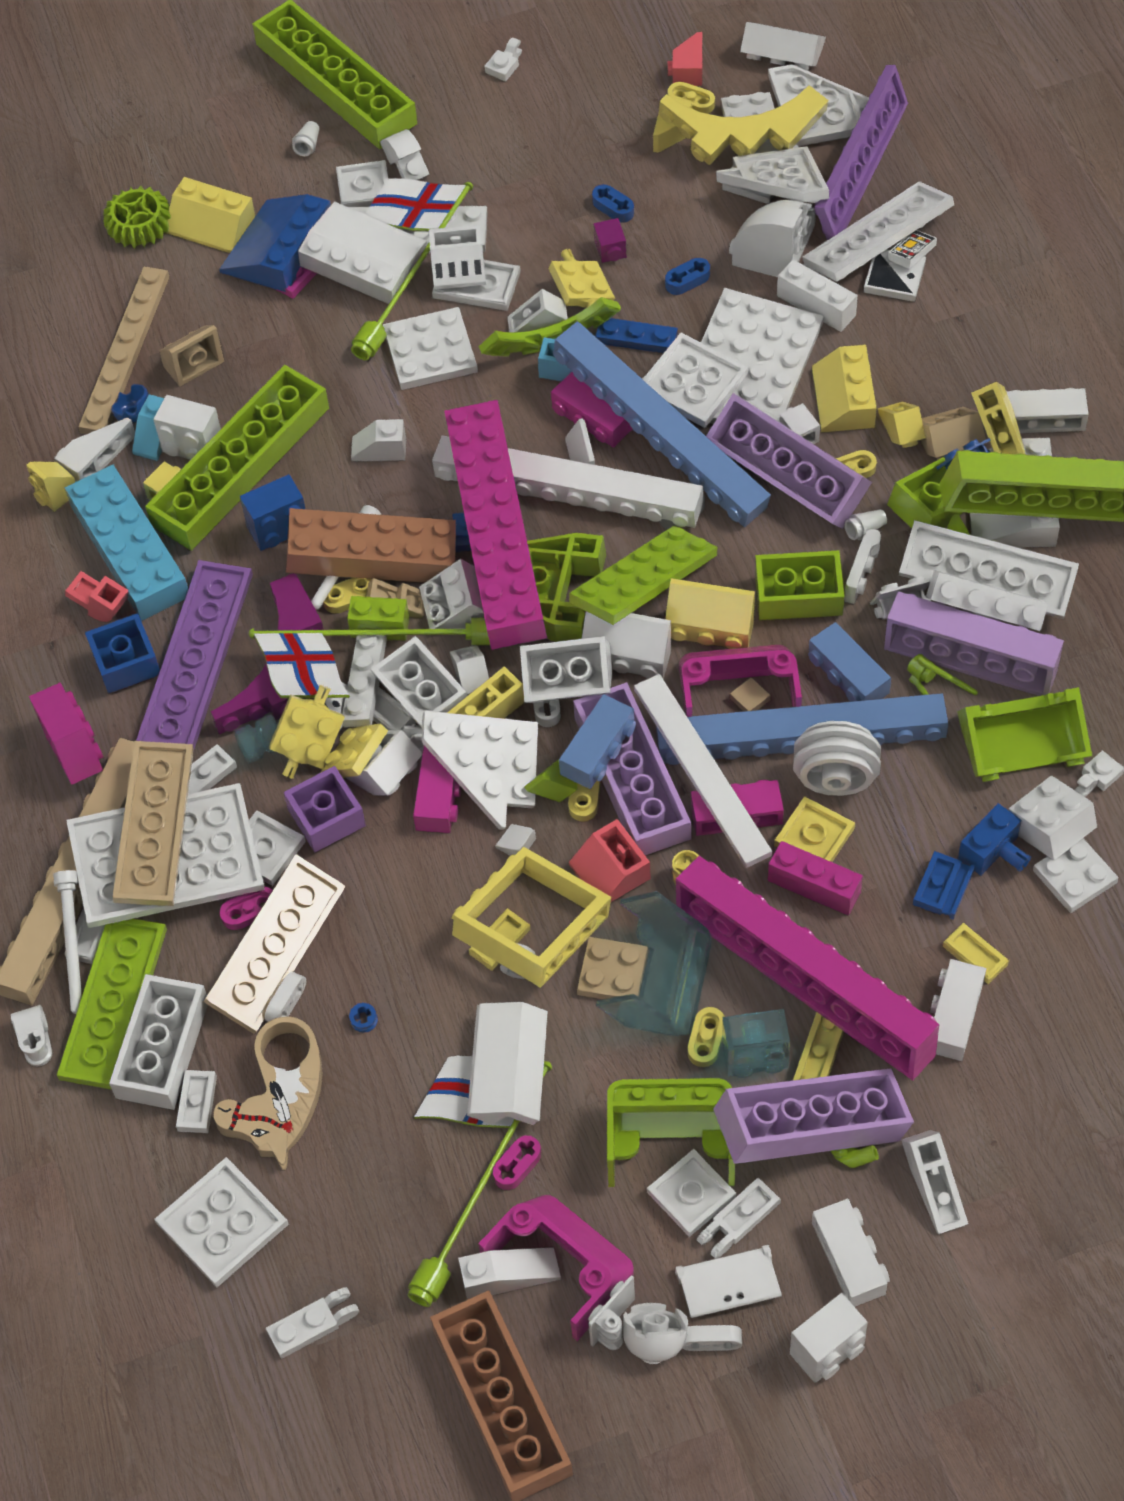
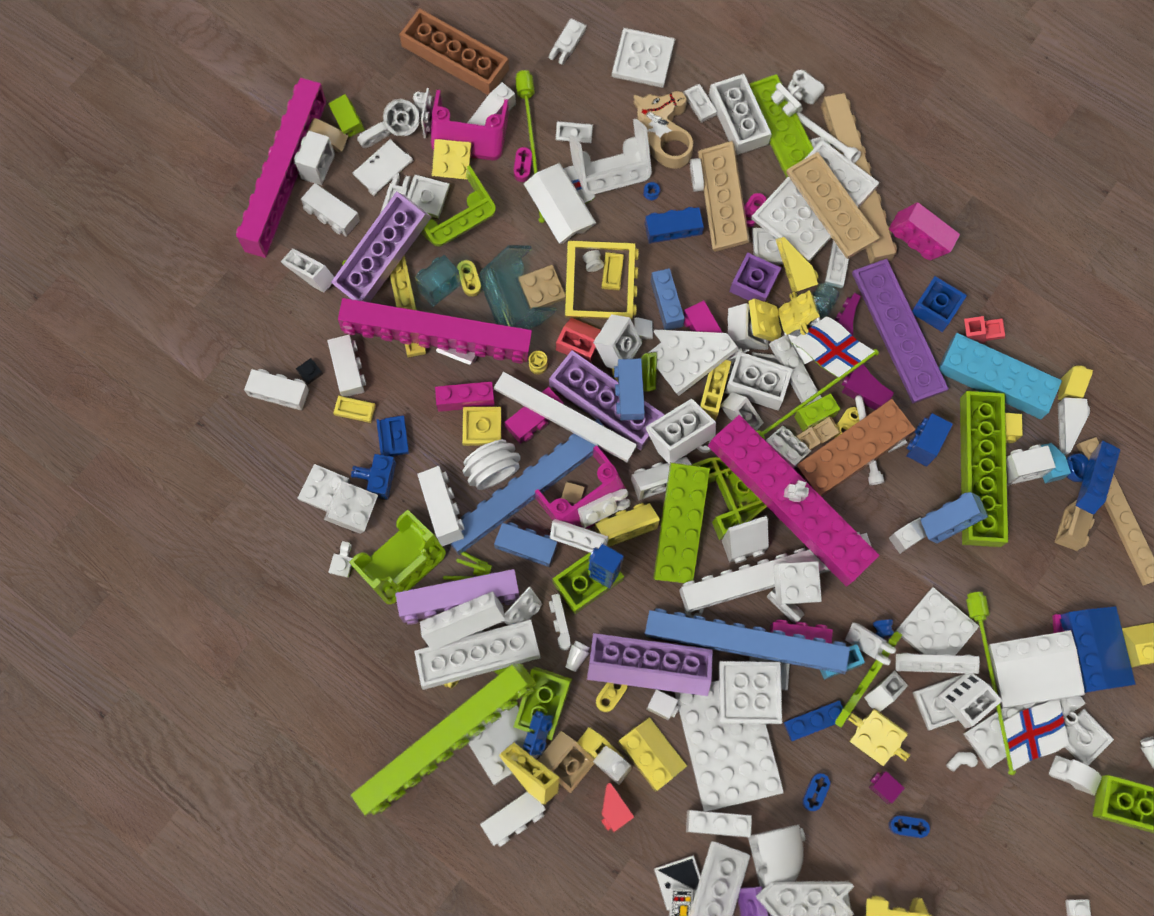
camera: 140 degrees right, 15 degrees up
(79, 1029) = (793, 104): none -> white hips
(129, 361) = (1098, 477): none -> blue brick
(261, 786) = (798, 269): none -> light yellow slope
(322, 416) = (953, 517): none -> medium blue brick
(363, 193) = (1076, 724): none -> white hand
(371, 946) = (674, 225): none -> blue brick
(388, 1073) = (614, 171): none -> white windscreen
(405, 1172) = (579, 131): none -> white slope
(453, 300) = (937, 663): none -> white plate
(457, 852) = (667, 299): none -> medium blue brick
(490, 372) = (884, 628): none -> blue wheel
(491, 498) = (796, 492): none -> white plate
(508, 228) = (962, 758): none -> white arm
(521, 355) = (869, 642): none -> white hinge
(558, 441) = (797, 583): none -> white brick
(568, 819) = (617, 340): none -> white brick
(577, 516) = (746, 540): none -> white slope
(618, 1223) = (451, 158): none -> light yellow plate
(723, 644) = (603, 507): none -> white hinge
(735, 1395) = (346, 116): none -> lime hinge
(778, 535) = (605, 565): none -> blue brick
(782, 618) = (576, 536): none -> white tile
(786, 1374) = (336, 136): none -> tan slope
(885, 1355) = (280, 170): none -> dark pink brick
(898, 388) = (612, 764): none -> white slope
(923, 362) = (614, 810): none -> coral slope
(932, 752) = (440, 505): none -> white brick
(1011, 1038) = (309, 371): none -> black plate
(1073, 1031) = (276, 389): none -> white brick

